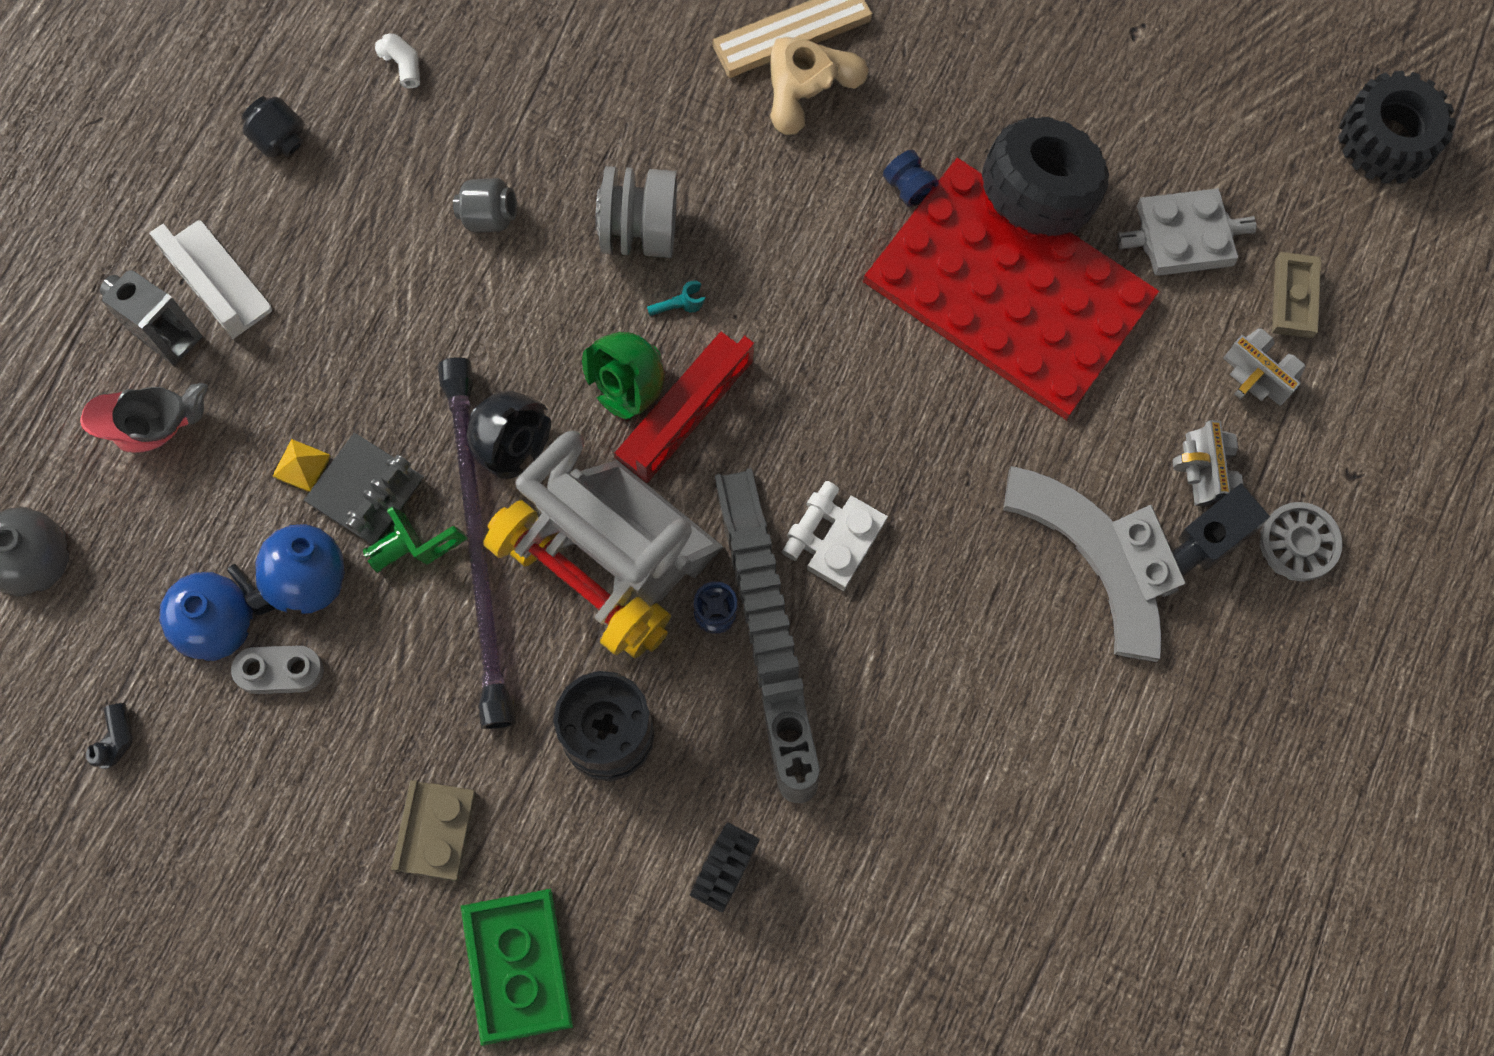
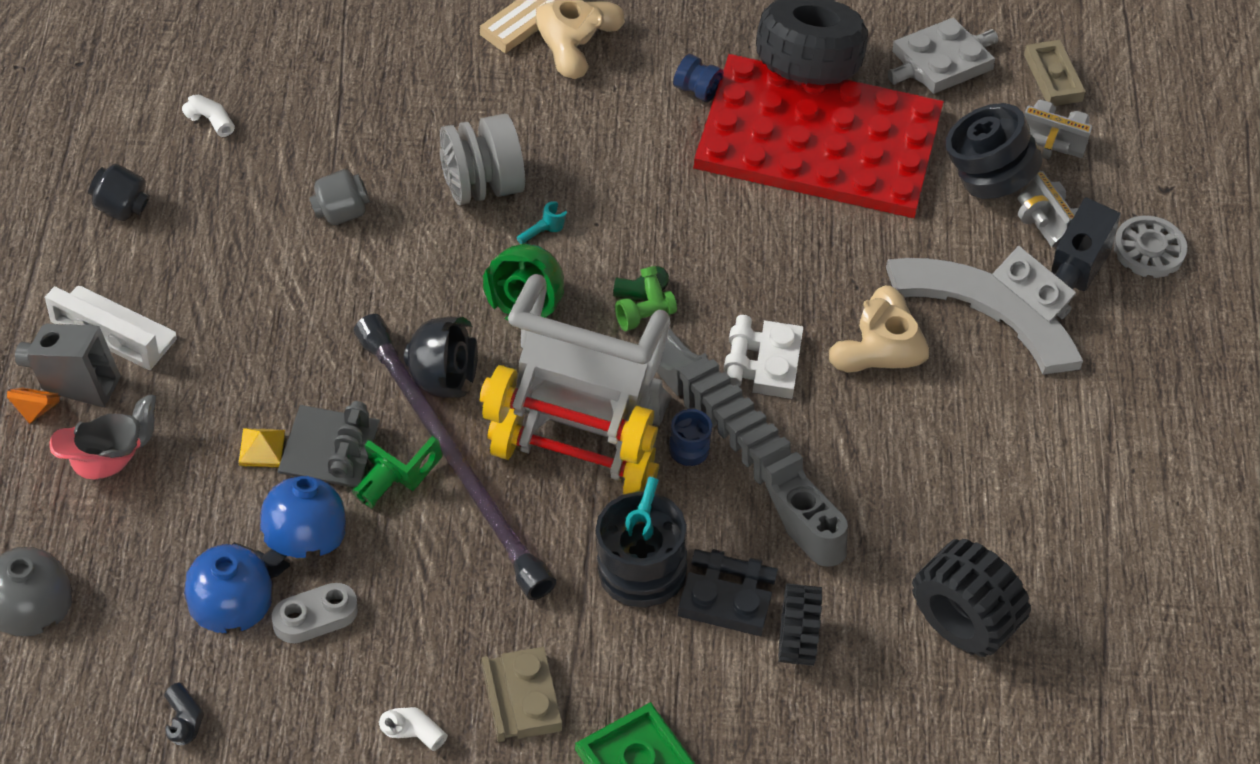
camera: 20 degrees left, 20 degrees down
(104, 338) = (32, 402): none -> orange slope
(318, 825) = (412, 723): none -> white arm
(613, 697) = (643, 510): none -> teal hand
(673, 804) = (725, 602): none -> black plate
(685, 405) = (595, 279): red fence -> none
(747, 413) = (636, 288): none -> dark green arm
(751, 437) = (630, 313): none -> bright green piece
(905, 907) = (971, 597): none -> black tyre
(968, 559) = (888, 336): none -> tan head
(1177, 381) = (994, 151): none -> black wheel

